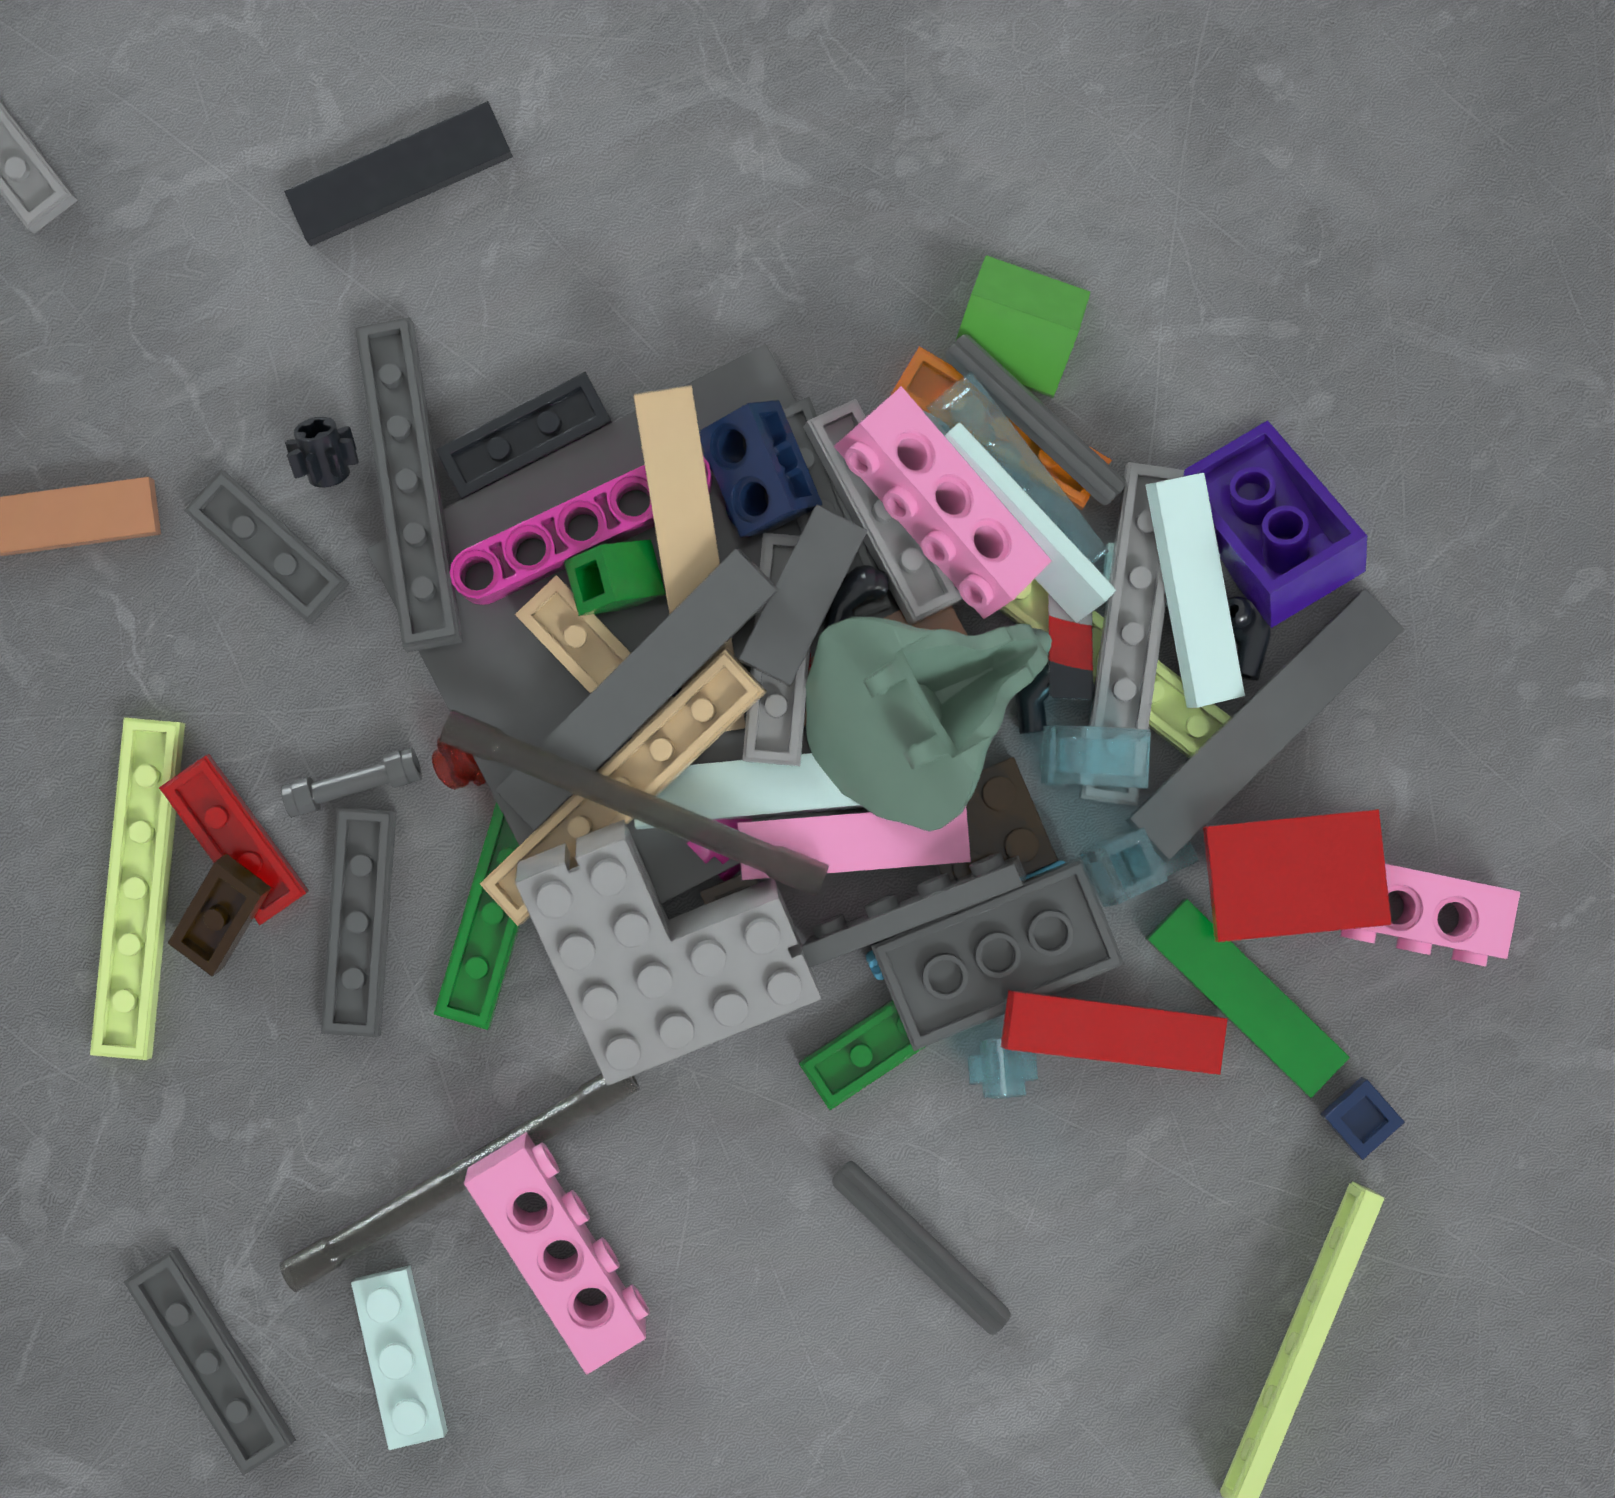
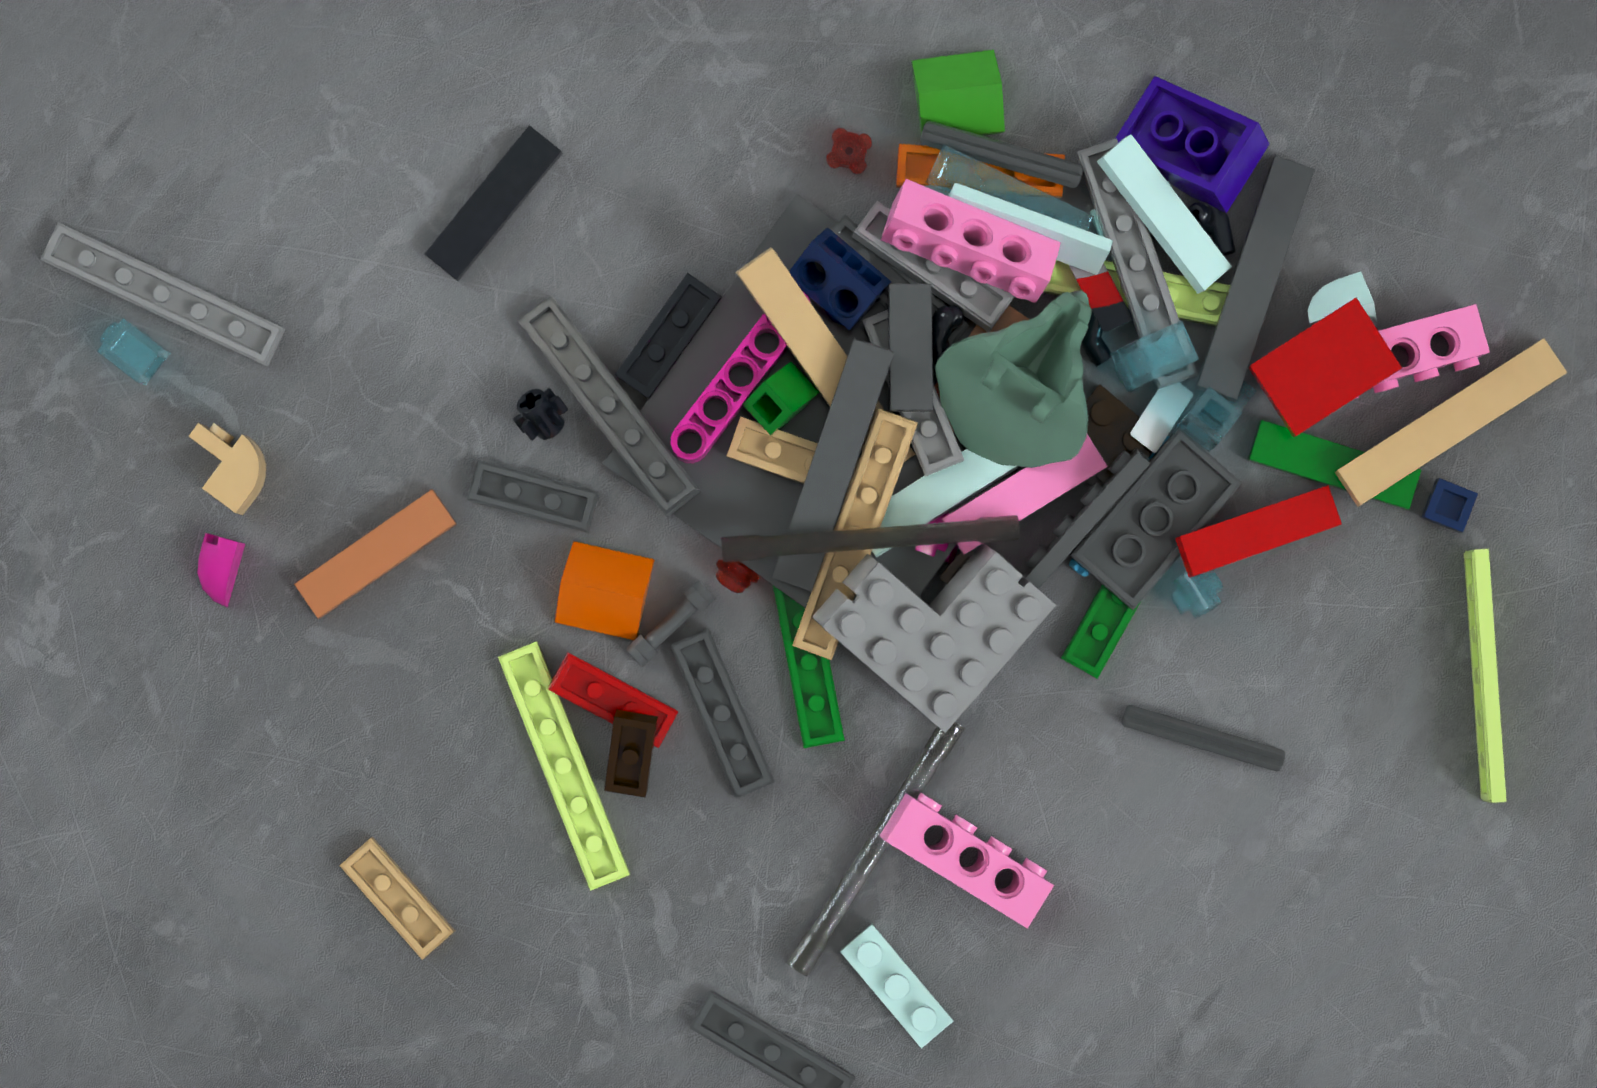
camera: 25 degrees left, 0 degrees up
(292, 701) = (603, 590): none -> orange slope
(851, 309) = (843, 140): none -> clear red plate
(1067, 832) = (1161, 415): none -> white sticker
(1355, 794) = (1337, 294): none -> light aqua brick
(1414, 1019) = (1450, 422): none -> tan tile

